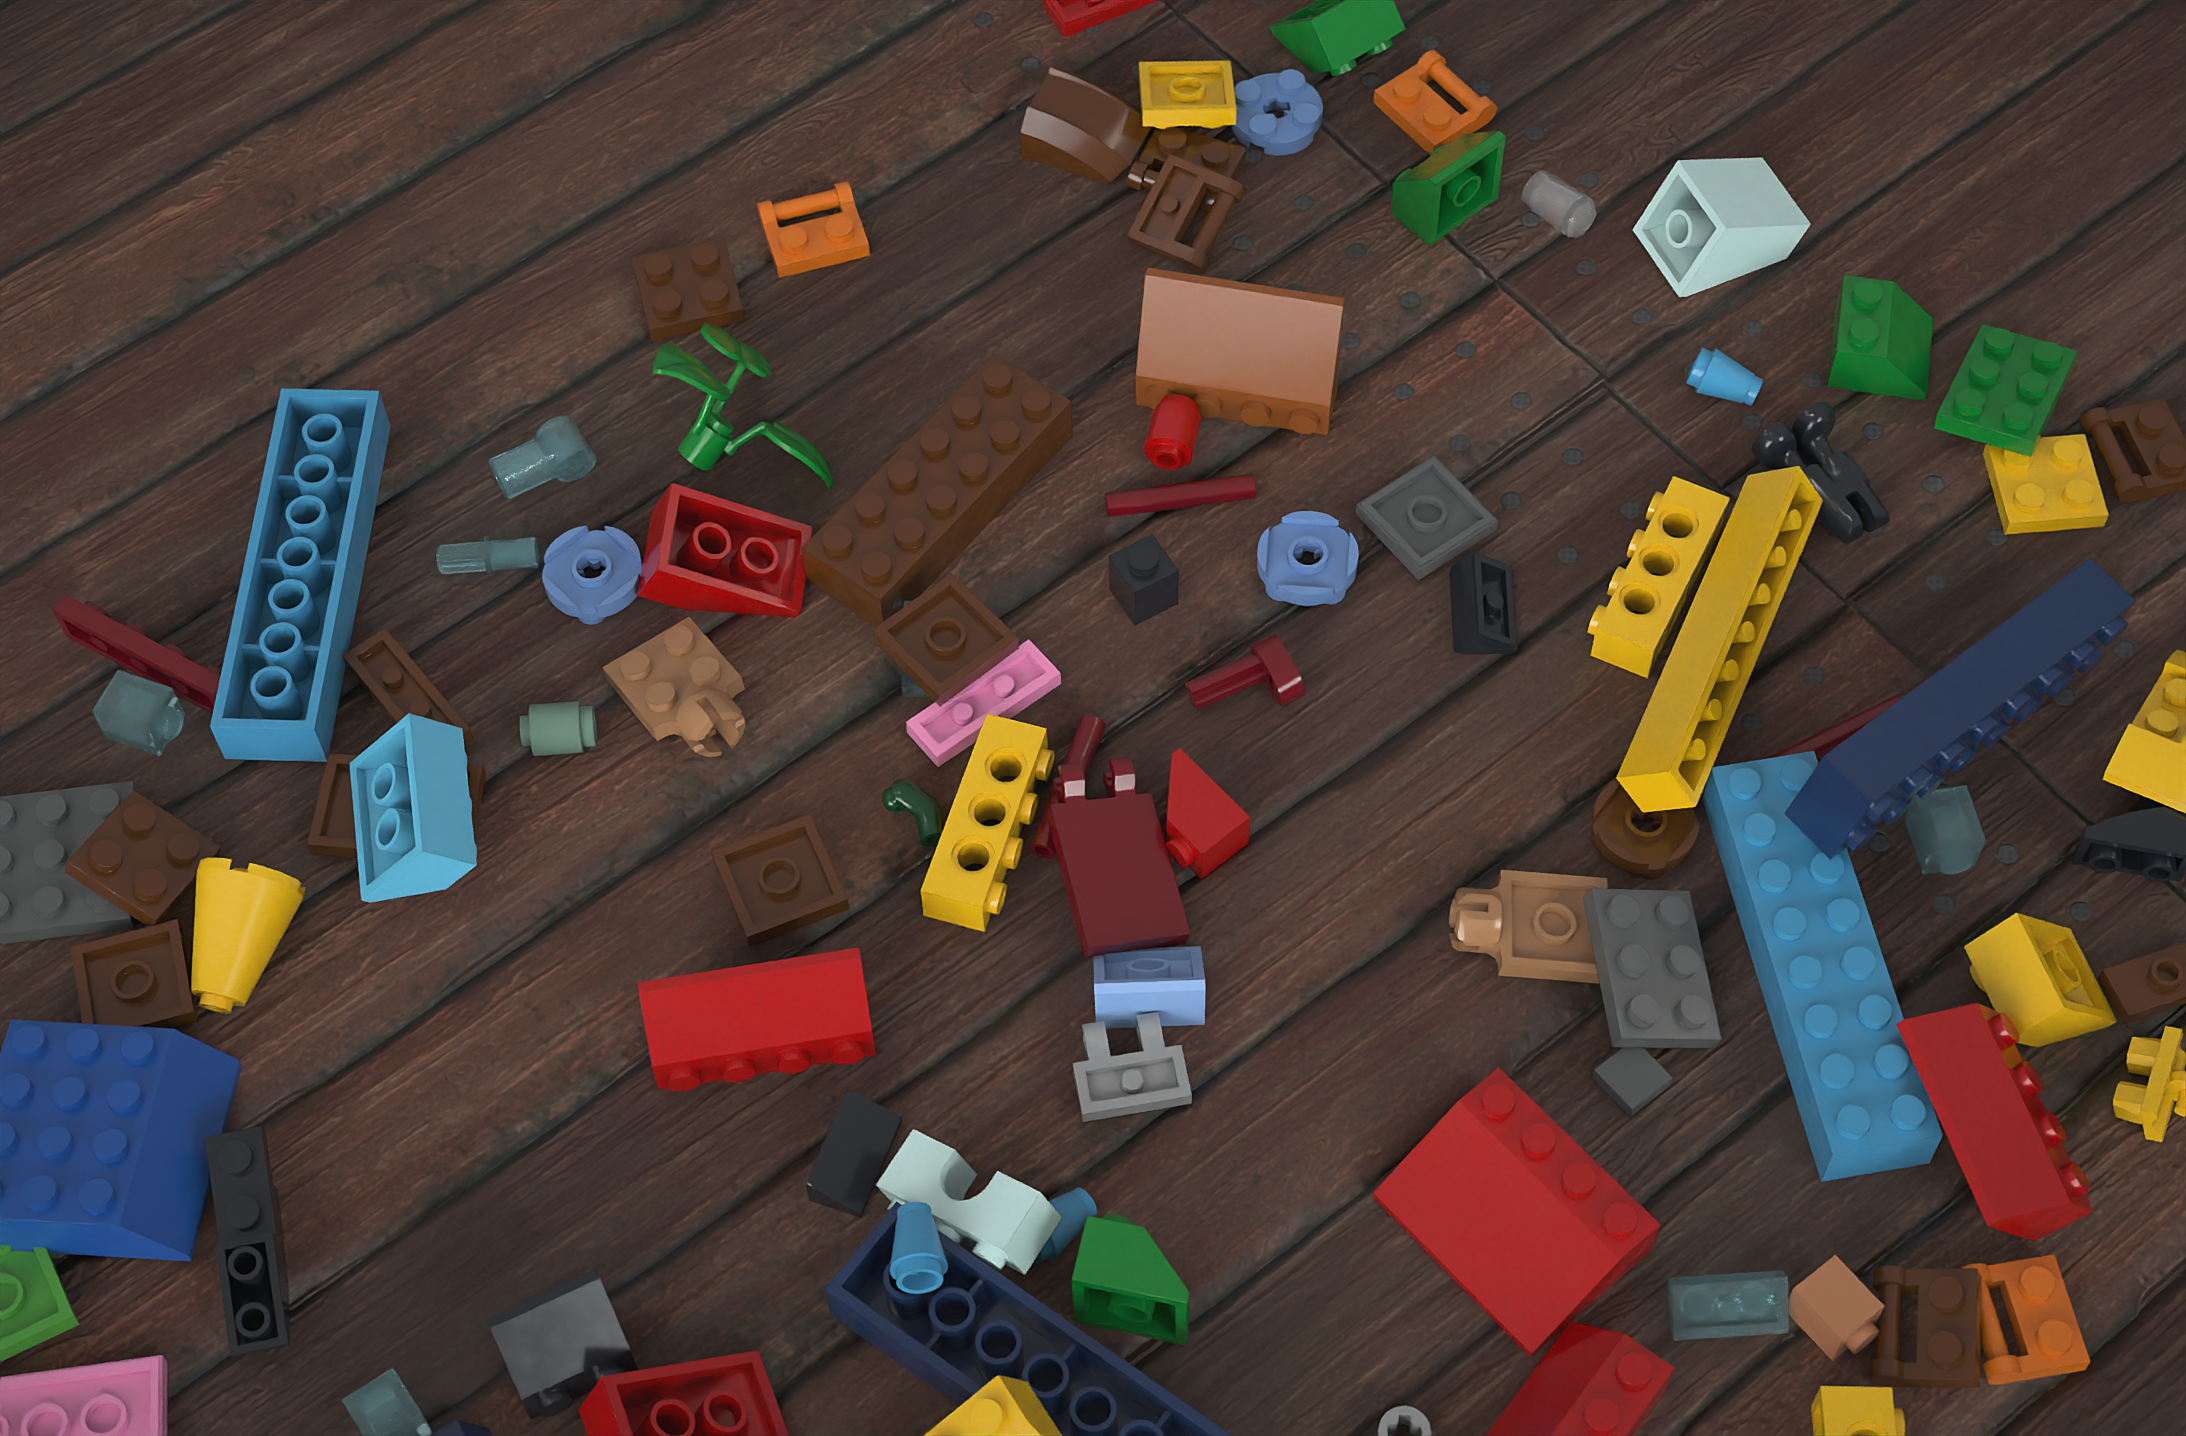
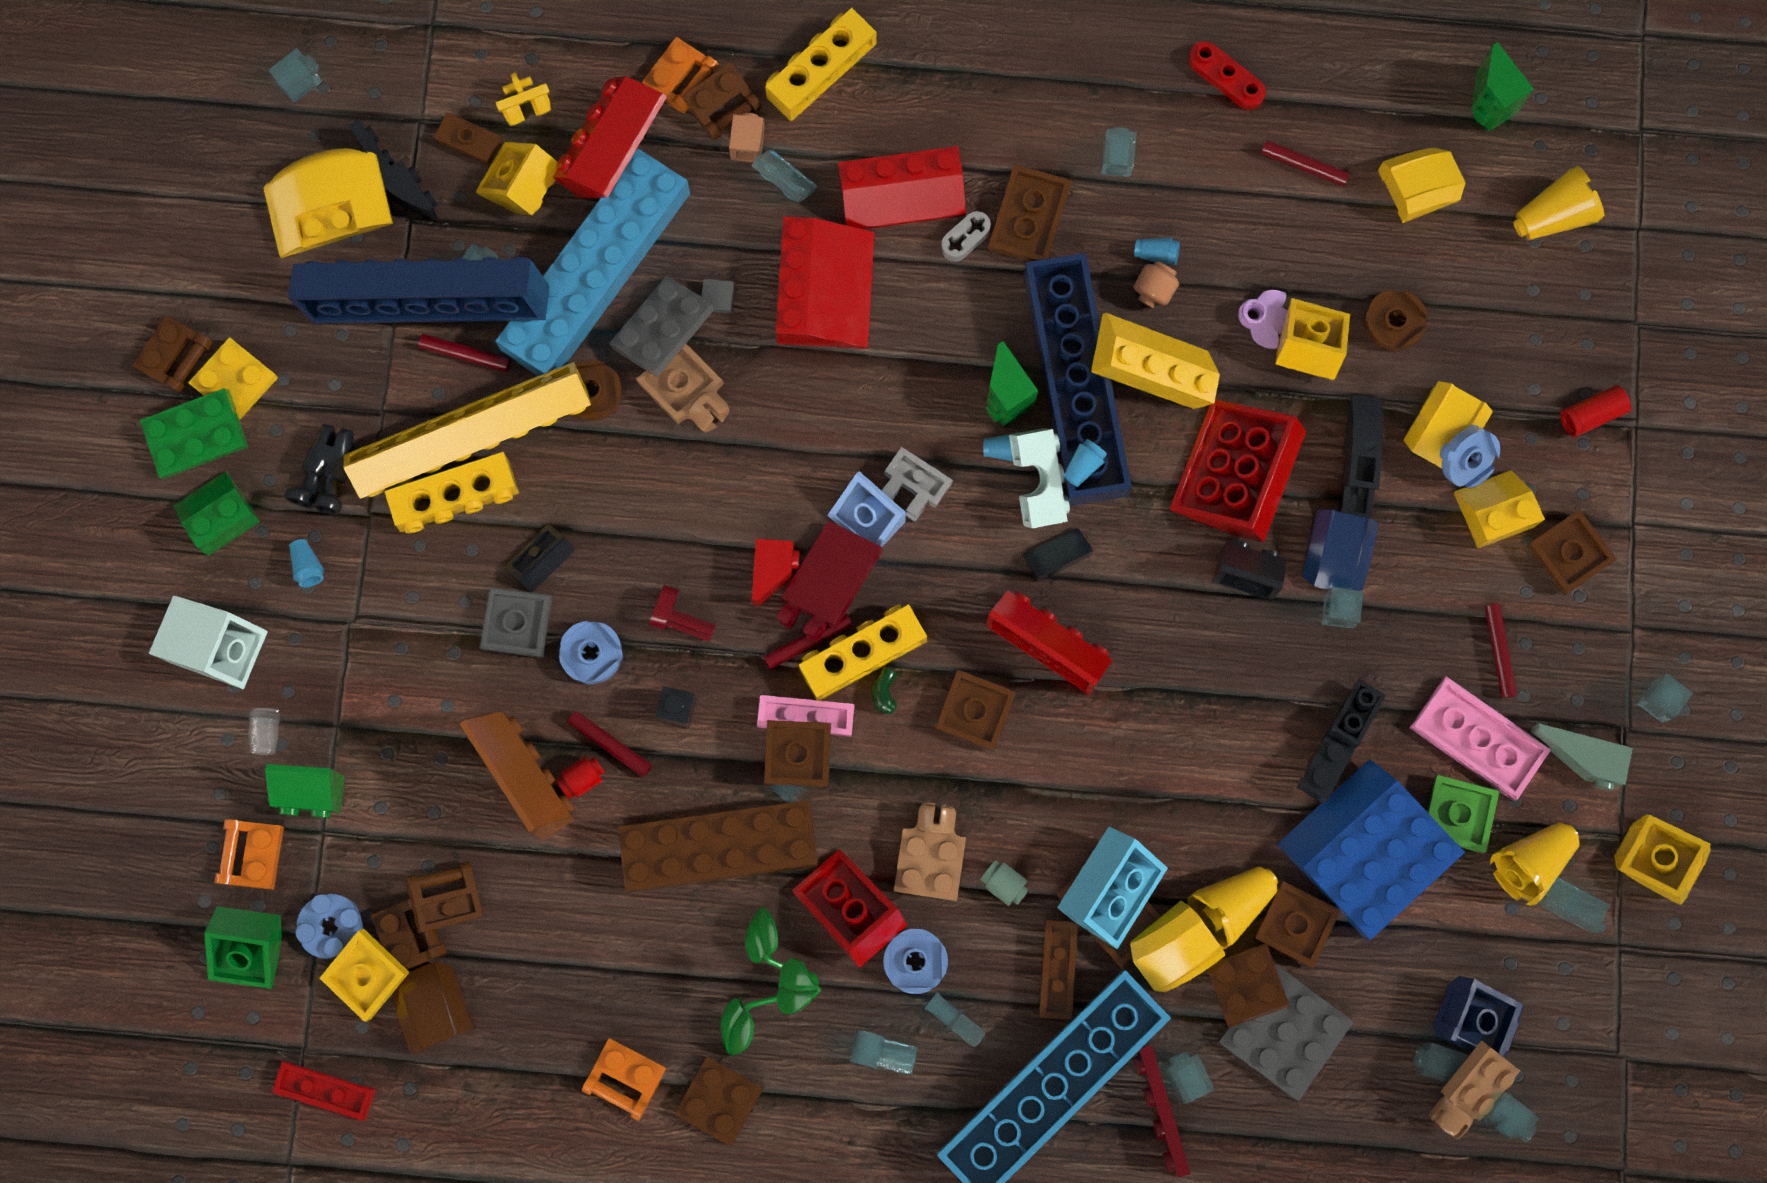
camera: 140 degrees left, 20 degrees up
(277, 819) = (1175, 949): none -> yellow slope

